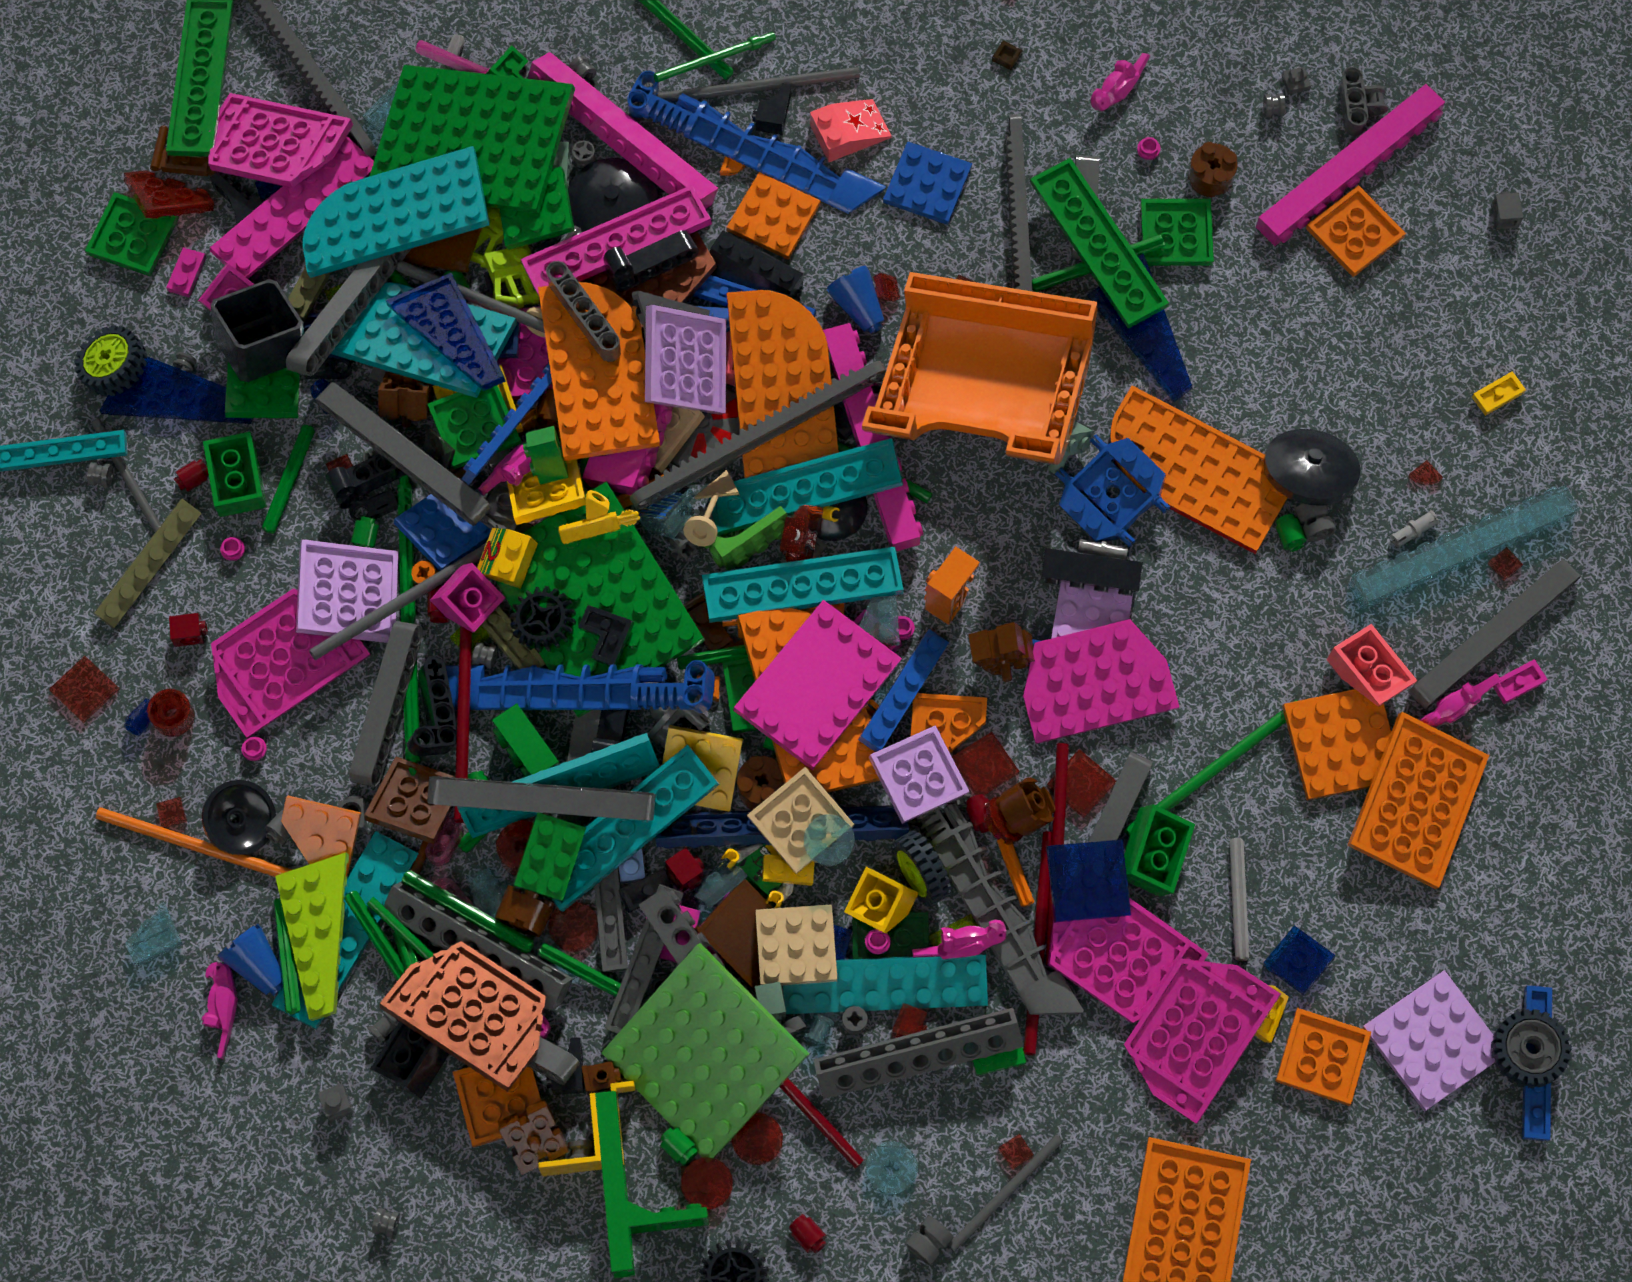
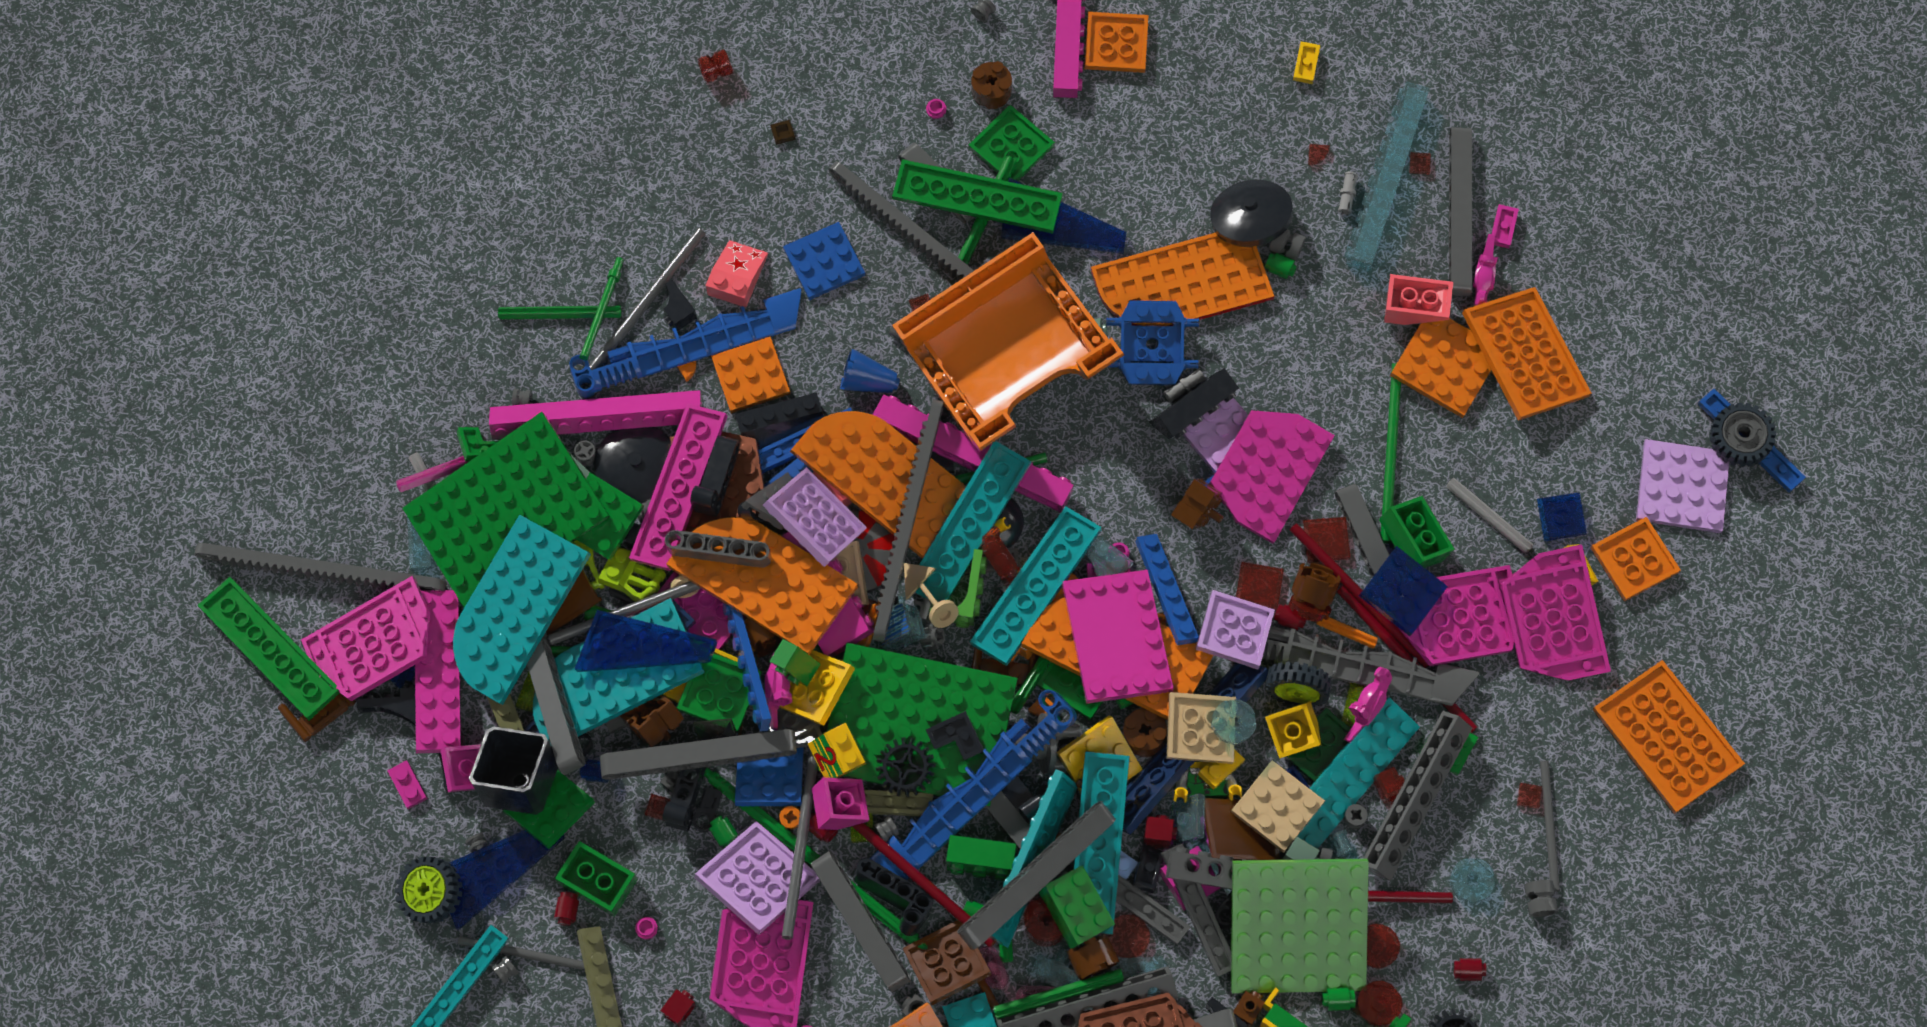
camera: 45 degrees left, 0 degrees up
(130, 238) = (342, 796): green plate -> none
(166, 197) = (338, 748): clear red plate -> none
(288, 479) = (631, 847): green axle -> none
(579, 969) = (1164, 957): green axle -> none
(597, 520) = (873, 672): yellow piece -> none
(877, 941) = (1319, 755): dark pink plate -> none
(886, 287) = (874, 351): clear red plate -> none
(947, 585) = (1127, 496): orange wedge -> none
(953, 715) = (1207, 574): orange plate -> none
(1118, 83) = (874, 84): dark pink animal -> none

